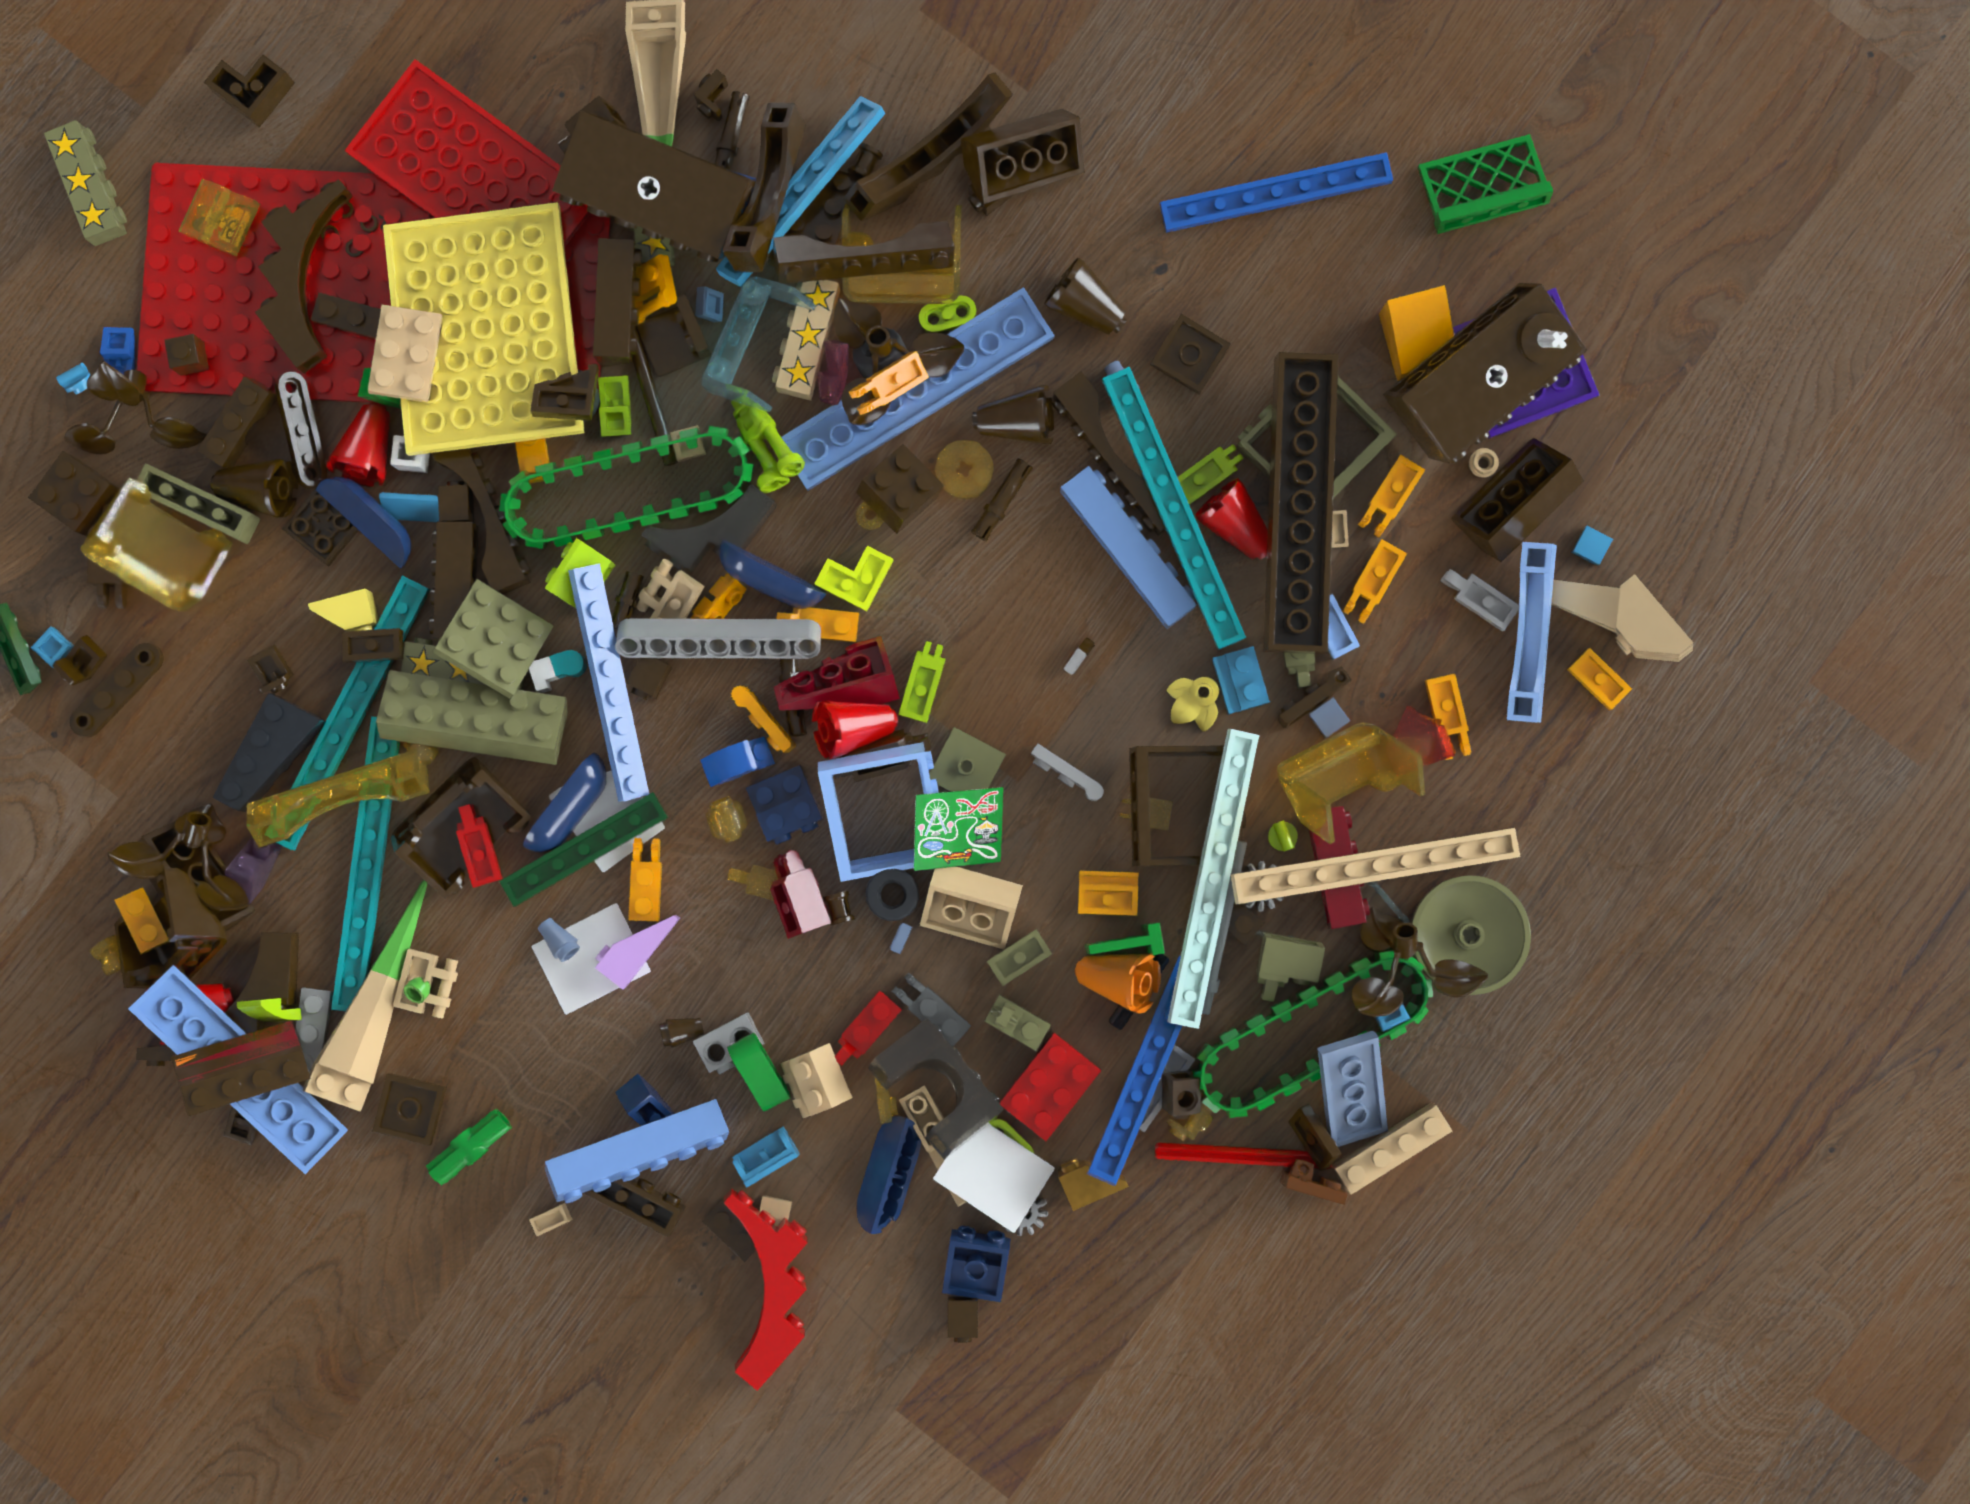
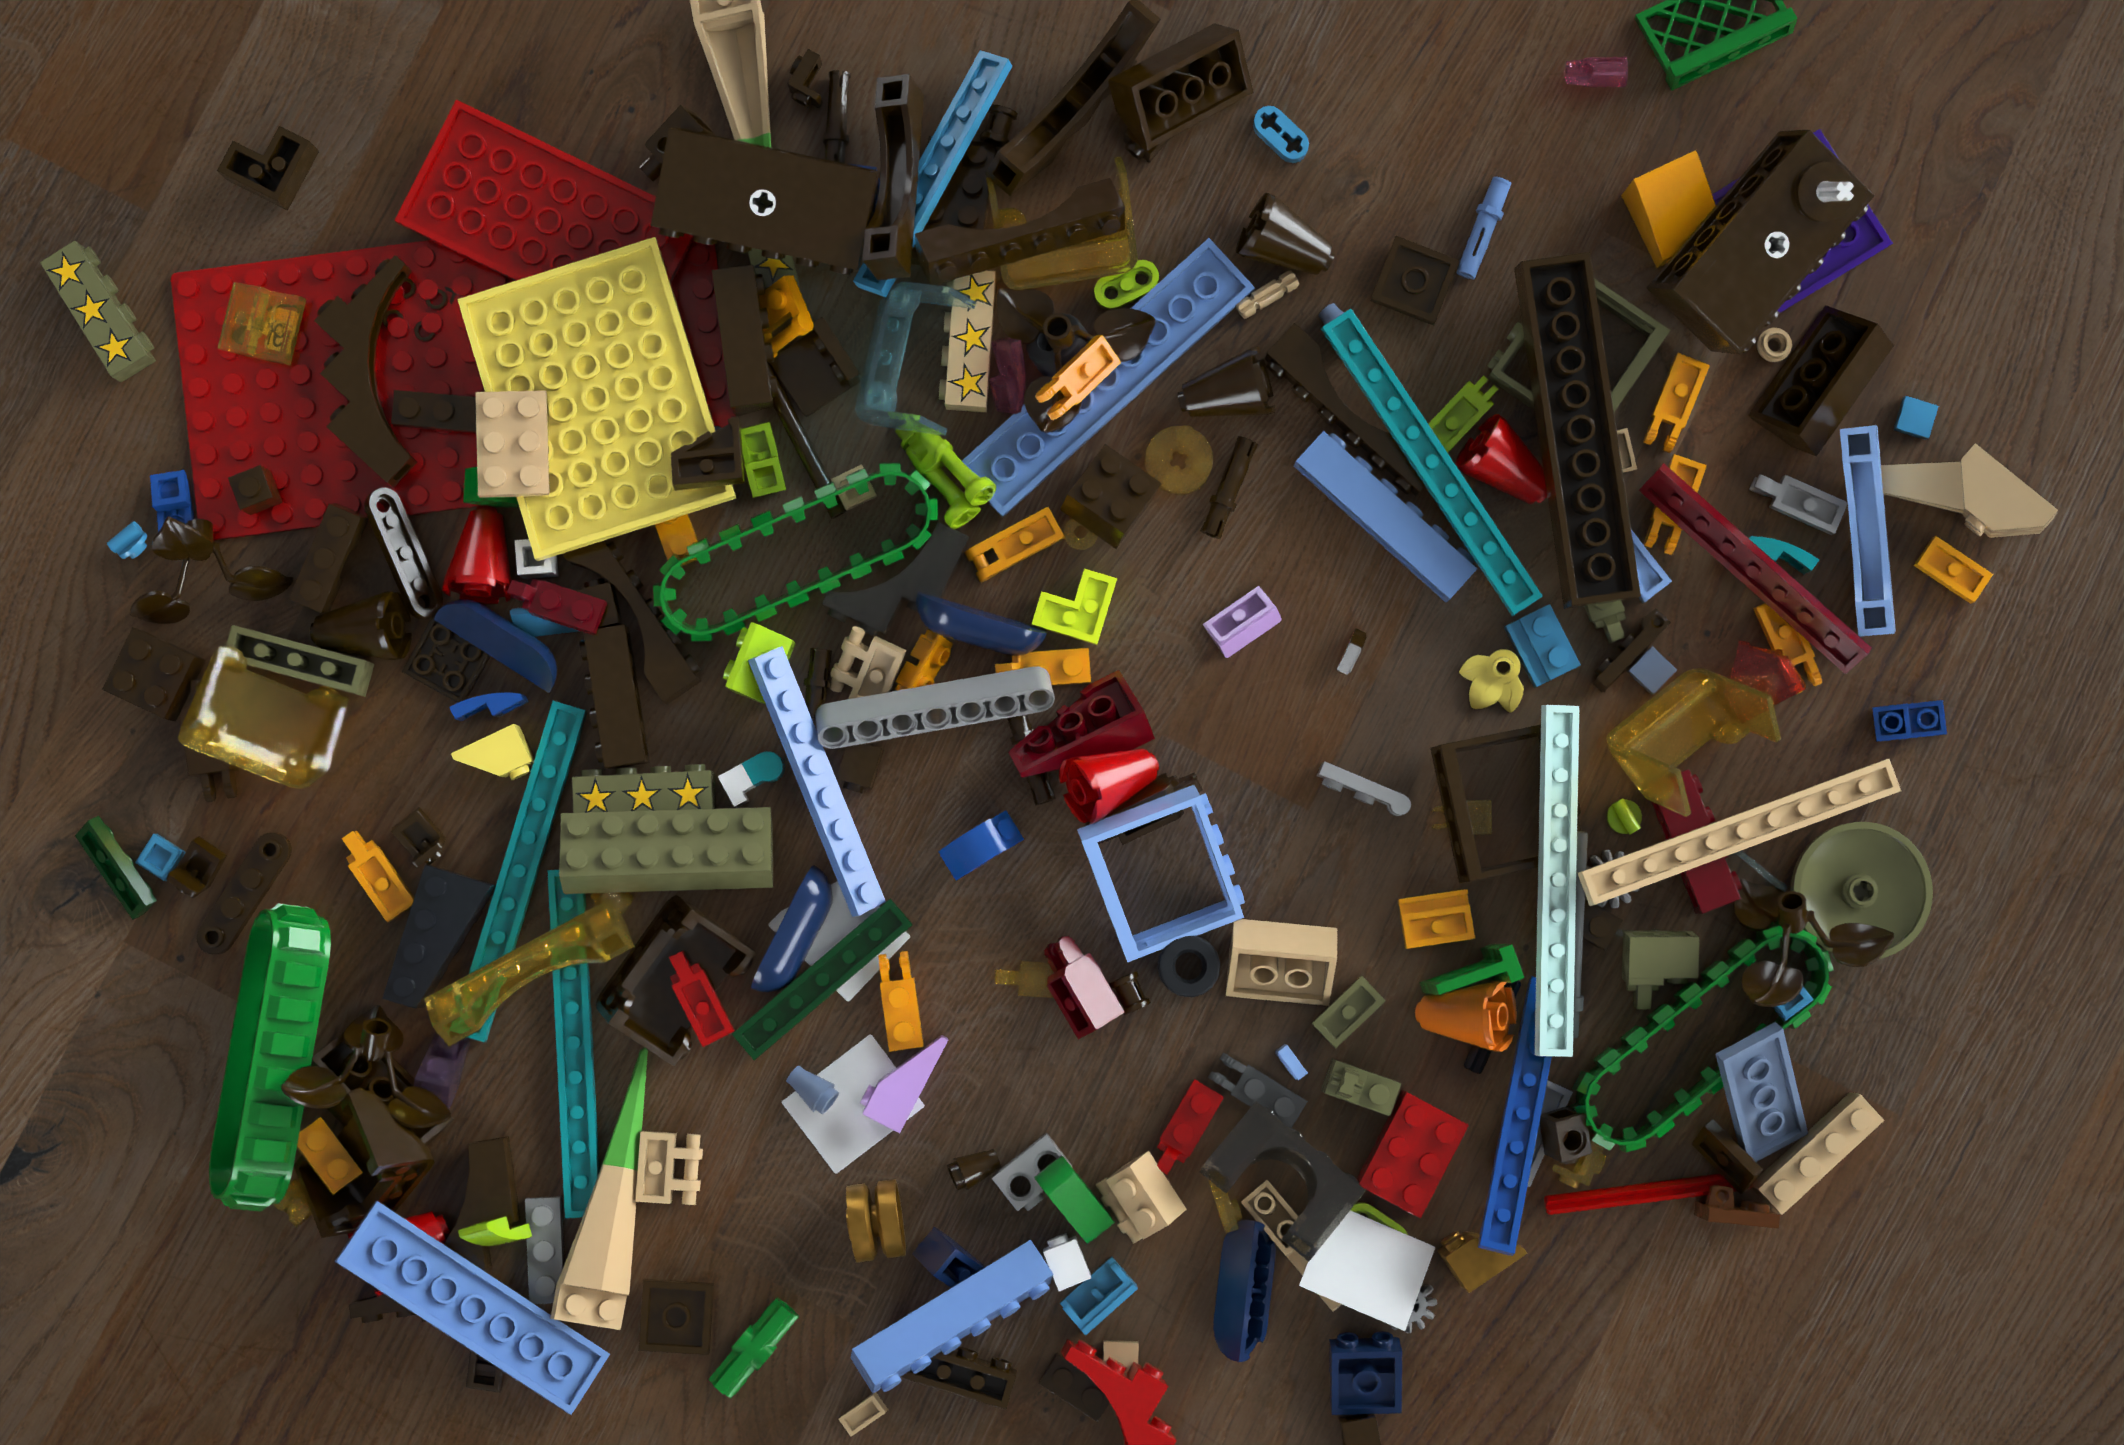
camera: 15 degrees left, 0 degrees up
(110, 815) = (268, 1042): none -> green piece
(229, 696) = (377, 877): none -> light orange hinge
(240, 1068) = (476, 1306): dark brown slope -> none
(355, 569) = (498, 704): none -> blue slope
(372, 645) = (535, 788): dark brown plate -> none
(417, 990) = (661, 1177): bright green hinge -> none
(421, 495) = (559, 604): none -> dark red hinge
(493, 639) = (675, 755): olive plate -> none
(589, 1059) = (870, 1220): none -> pearl gold wheel
(709, 304) = (849, 322): sand blue tile -> none
(726, 819) = (980, 914): clear yellow head -> none
(743, 1123) = (1066, 1261): none -> white brick
(761, 717) = (999, 789): light orange hinge -> none
(784, 805) = (1044, 885): dark blue plate -> none
(813, 514) = (1015, 543): none -> light orange plate
(900, 938) = (1208, 1014): sand blue tile -> none
(922, 684) = (1178, 717): lime hinge -> none
(958, 828) = (1252, 876): sticker -> none
(963, 991) = (1291, 1062): none -> light blue tile
(966, 763) = (1246, 802): olive plate -> none
(992, 614) = (1242, 622): none -> lavender slope
(1064, 344) = (1267, 294): none -> tan axle
(1095, 215) = (1286, 128): none -> dark azure beam
(1262, 311) = (1488, 214): none -> medium blue pin
(1276, 192) = (1478, 76): blue plate -> none
(1377, 206) = (1597, 72): none -> clear pink hinge
(1430, 647) = (1755, 569): none -> dark red plate
(1446, 633) = (1793, 555): none -> teal slope
(1538, 799) = (1909, 720): none -> blue slope

